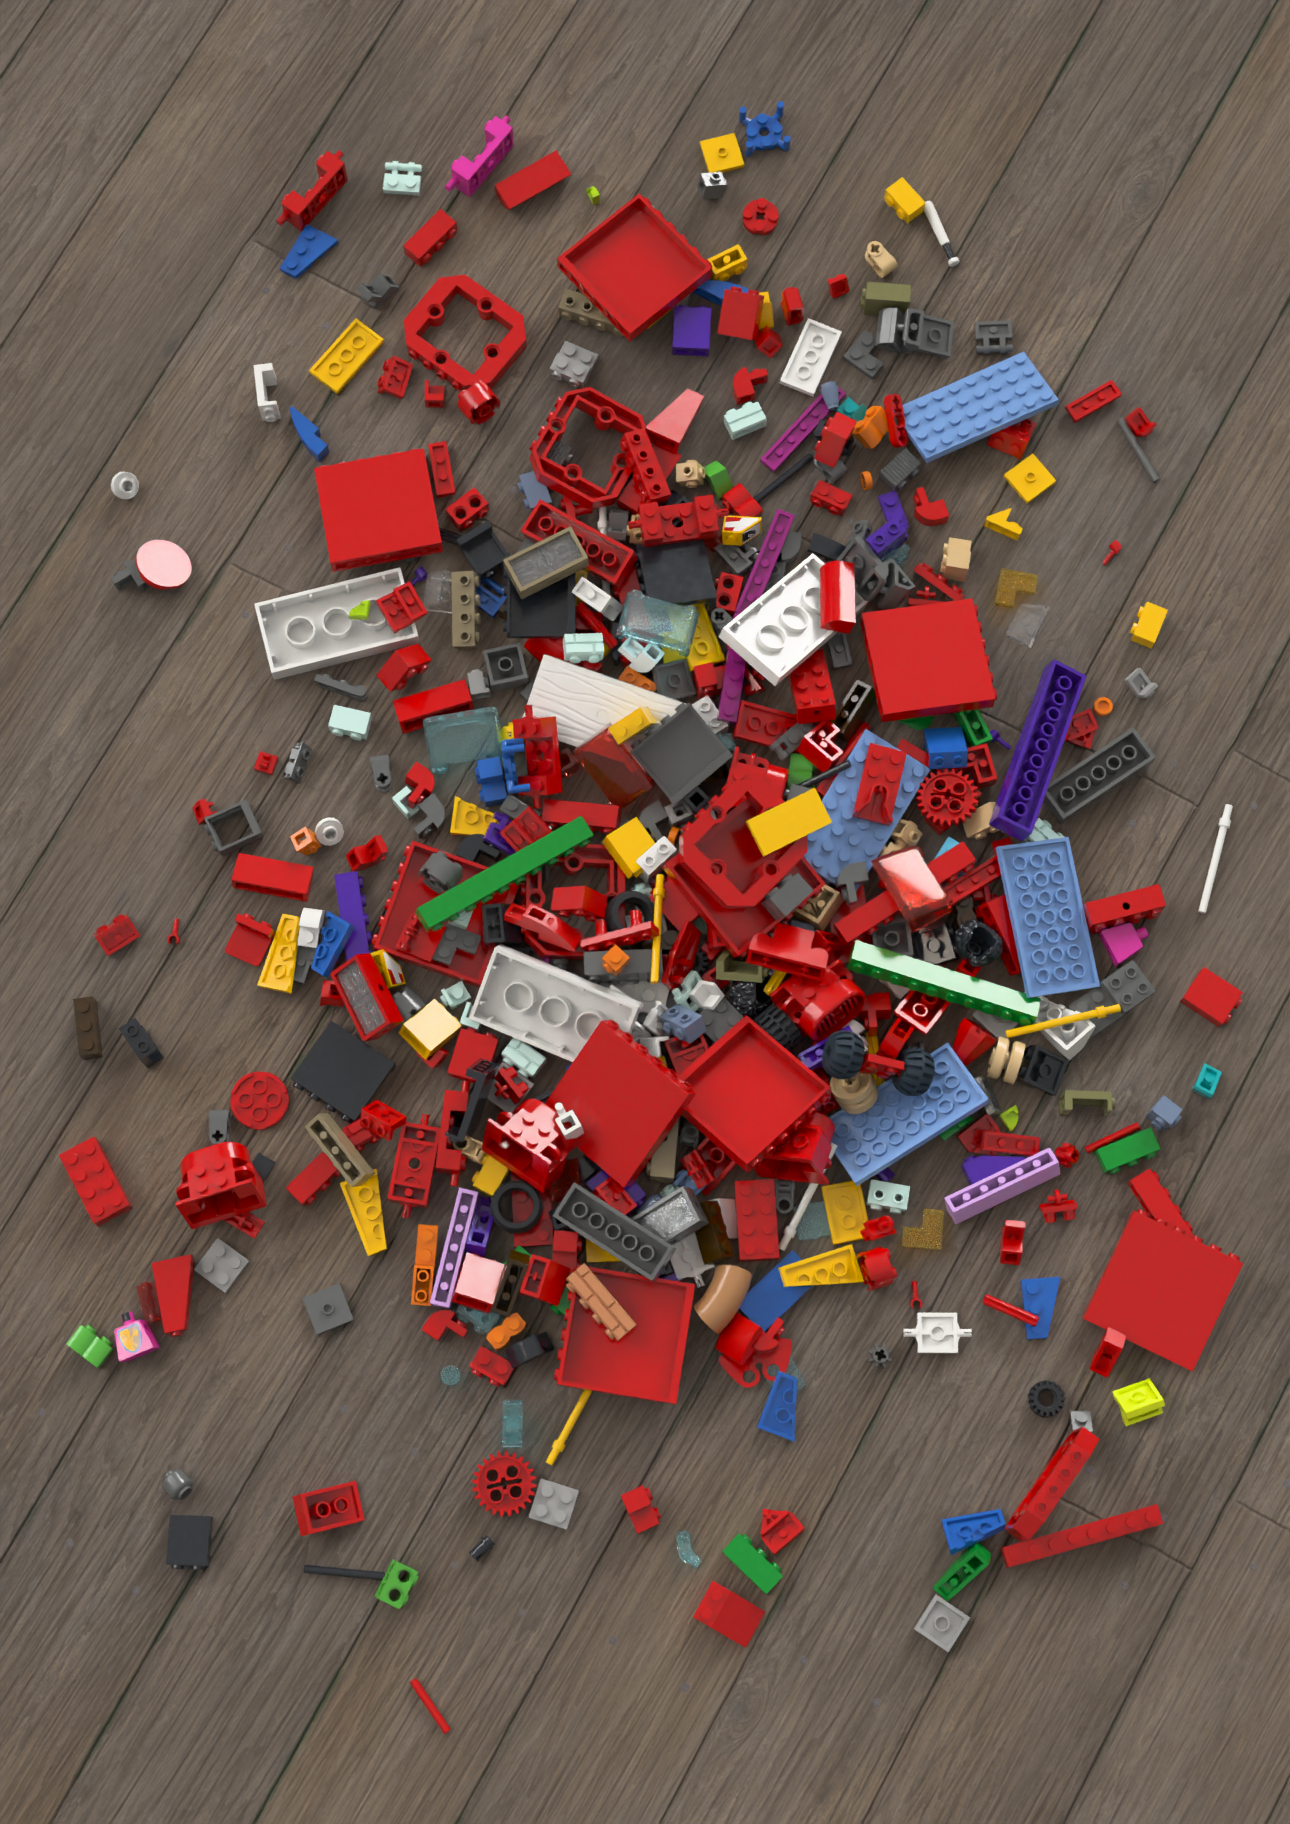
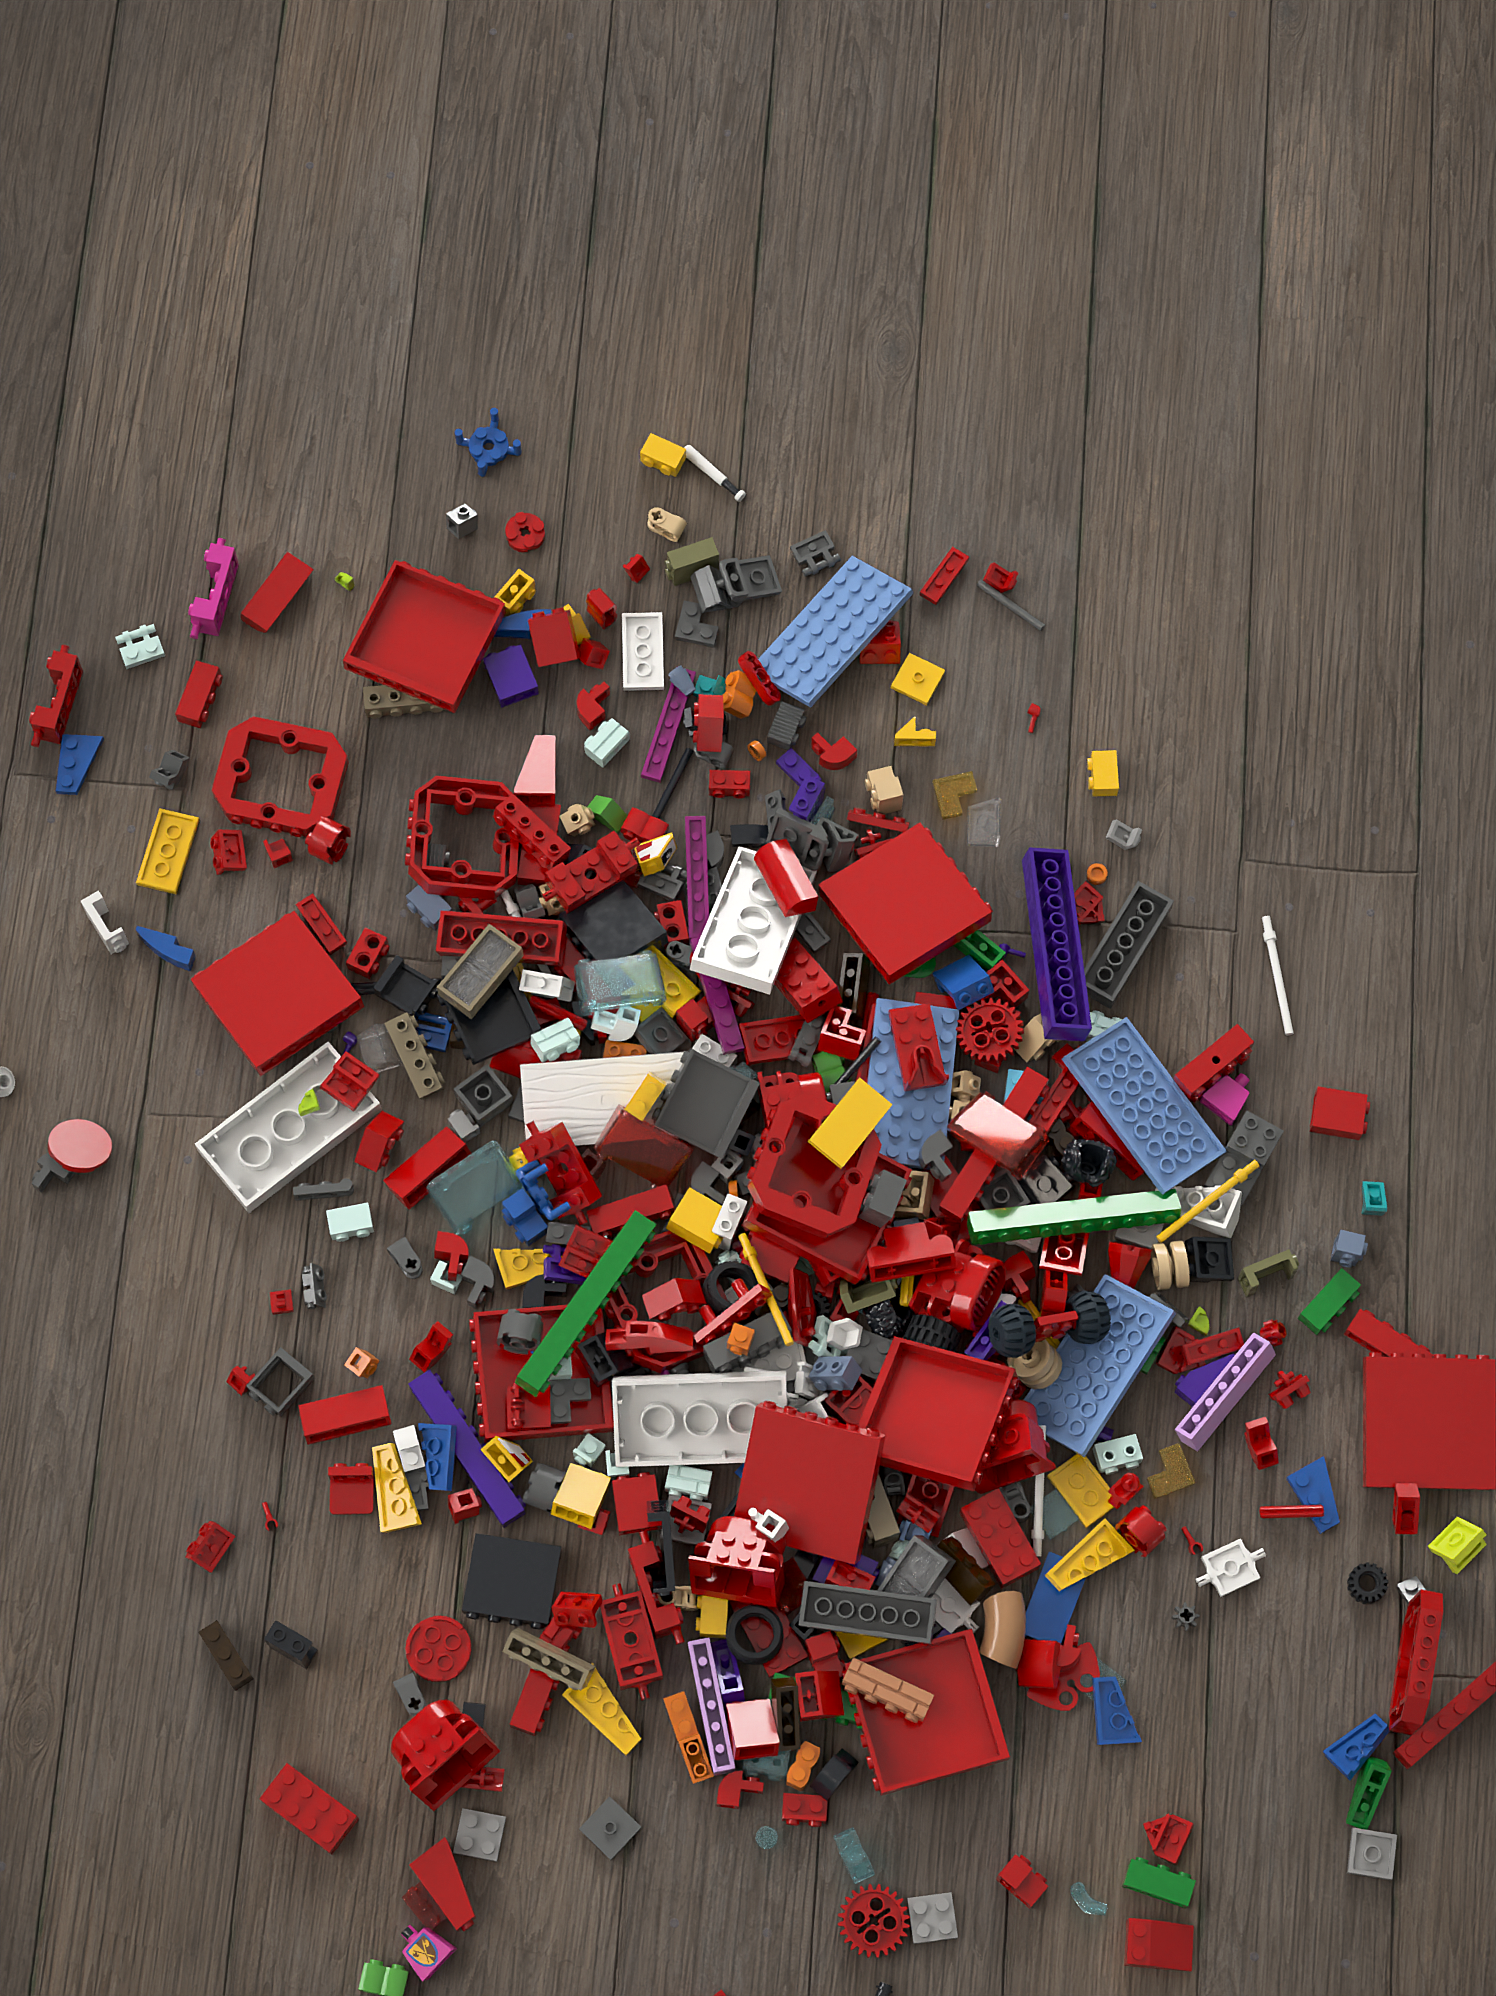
camera: 25 degrees left, 5 degrees down
(329, 831) = (381, 1342): white plate -> none
(366, 997) = (503, 1491): brick -> none
(558, 1444) = (909, 1856): yellow bar -> none
(573, 364) = (406, 760): light grey plate -> none
(722, 153) = (456, 485): yellow plate -> none
(1111, 1138) = (1308, 1296): red bar -> none

